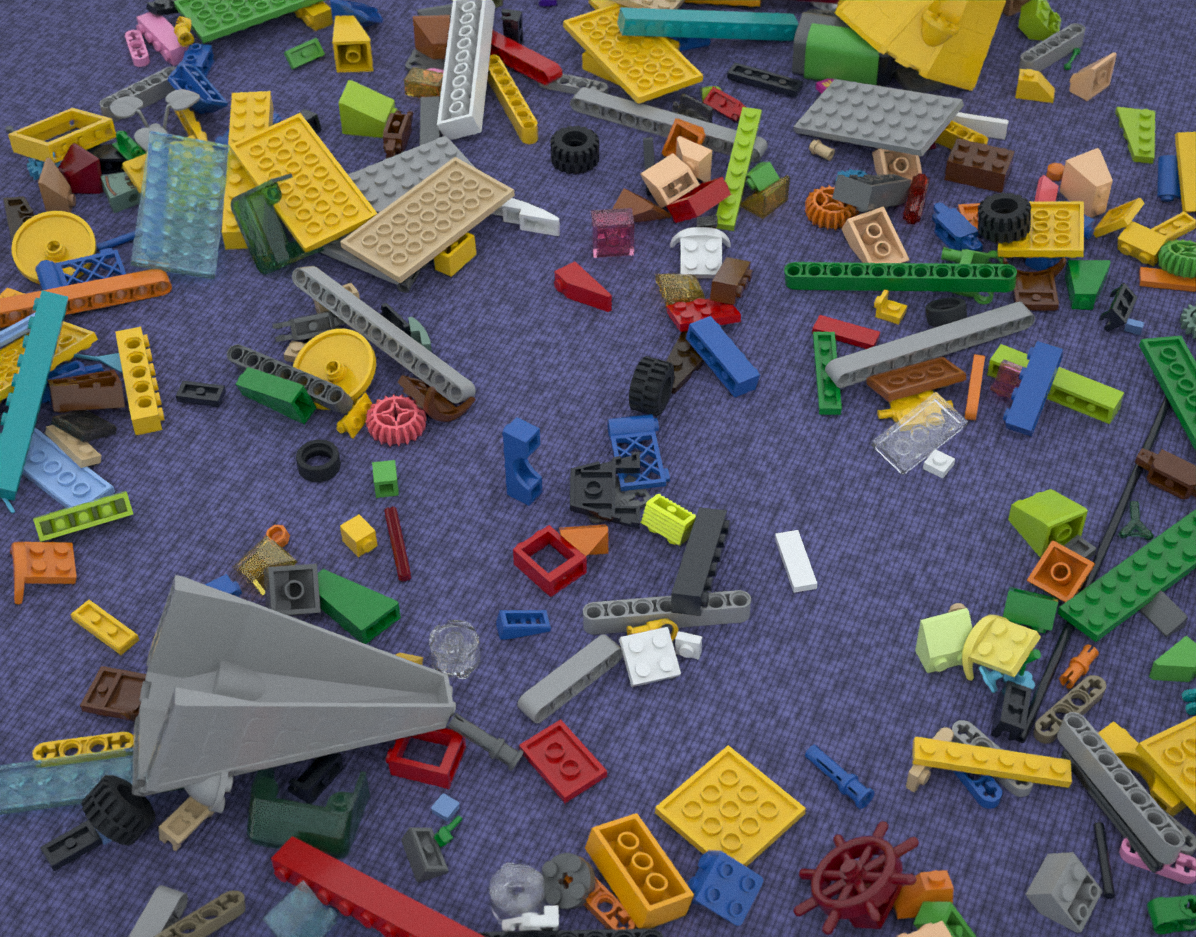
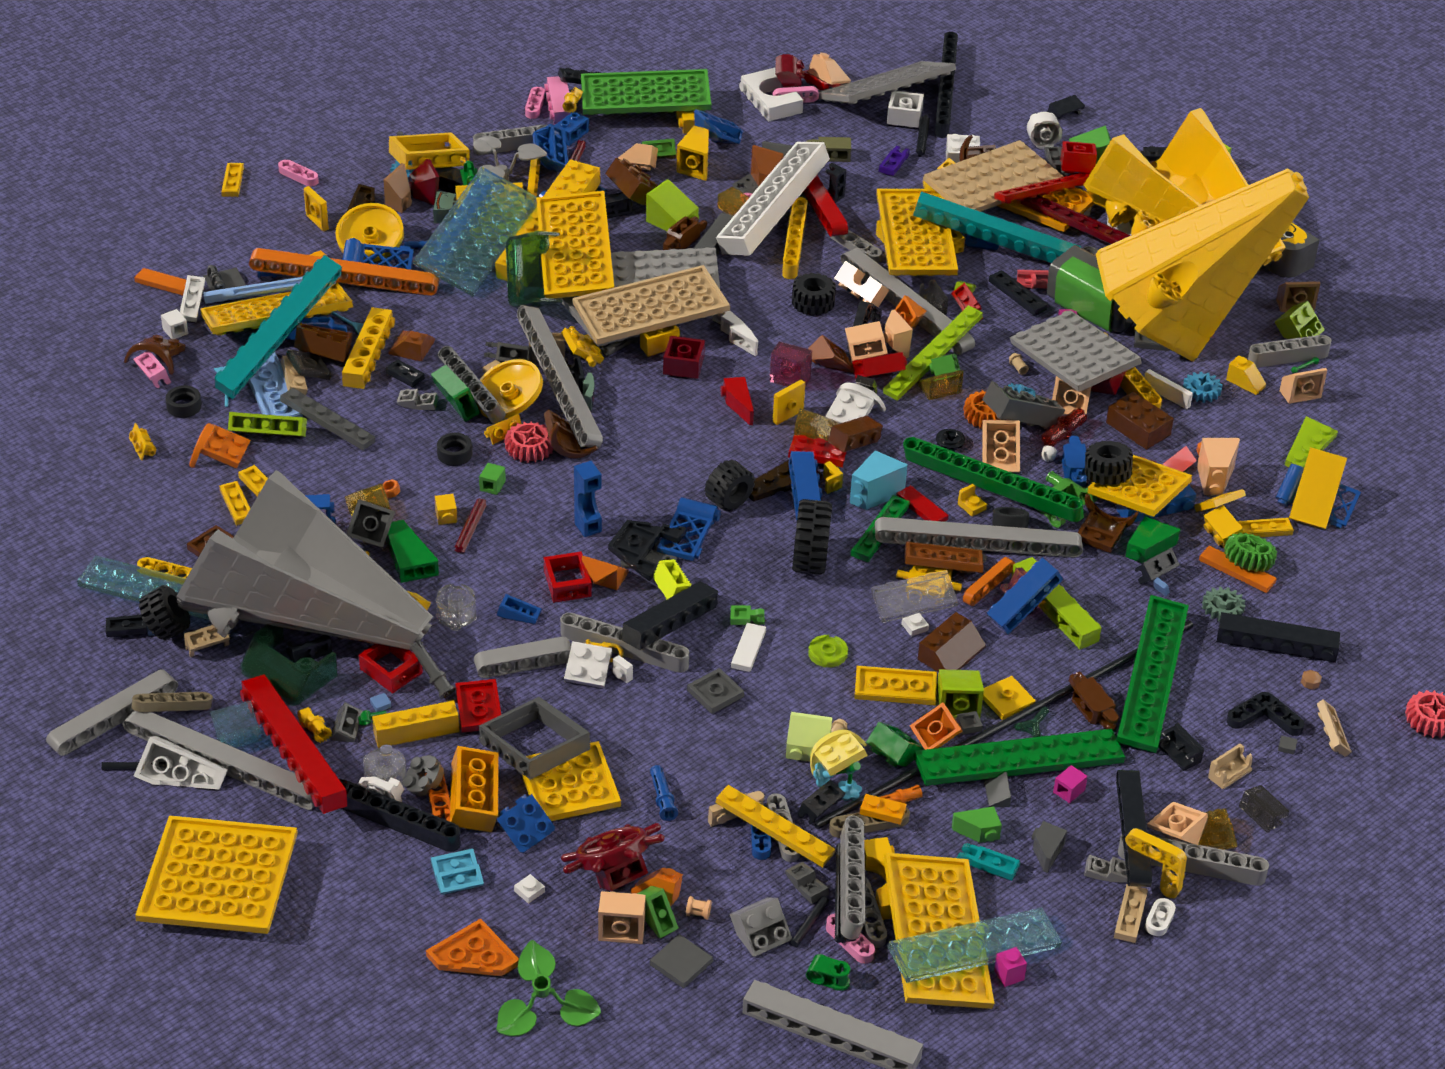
camera: 25 degrees right, 5 degrees down
(112, 590) = (253, 479): none -> yellow plate
(147, 481) = (327, 419): none -> dark grey plate
(184, 359) = (412, 345): none -> dark orange slope
(220, 85) = (578, 150): none -> dark red axle
(228, 421) = (414, 400): none -> light grey slope
(296, 66) = (642, 155): none -> light nougat slope
(308, 95) = (631, 180): none -> reddish brown brick
(379, 290) = (582, 346): none -> yellow plate
(389, 872) = (314, 724): none -> yellow connector
(495, 263) = (684, 357): none -> dark red brick
(510, 818) = (416, 724): none -> yellow brick
(630, 127) = (851, 278): none -> arch
(639, 272) = (788, 402): none -> yellow plate
(666, 742) = (577, 737): none -> dark grey window
(739, 334) = (833, 477): none -> yellow bracket
(765, 527) = (743, 614): none -> bright green plate
(770, 60) = (1033, 278): none -> coral hips
(786, 409) = (812, 536): none -> black tyre
(792, 321) = (877, 480): none -> medium azure slope
(802, 627) = (715, 690): none -> dark grey plate
(818, 246) = (955, 437): none -> black gear
(877, 530) = (828, 651): none -> lime tile
(922, 230) = (1048, 453): none -> white hinge
(972, 540) = (895, 685): none -> yellow tile
(983, 902) = (698, 907): none -> light nougat bush
(995, 472) = (951, 644): none -> reddish brown slope
(1007, 109) = (1203, 386): none -> dark azure gear
(1060, 812) = (806, 882): none -> dark grey slope
(1079, 689) = (883, 809): none -> light orange plate
(1097, 502) = (1007, 697): none -> yellow plate

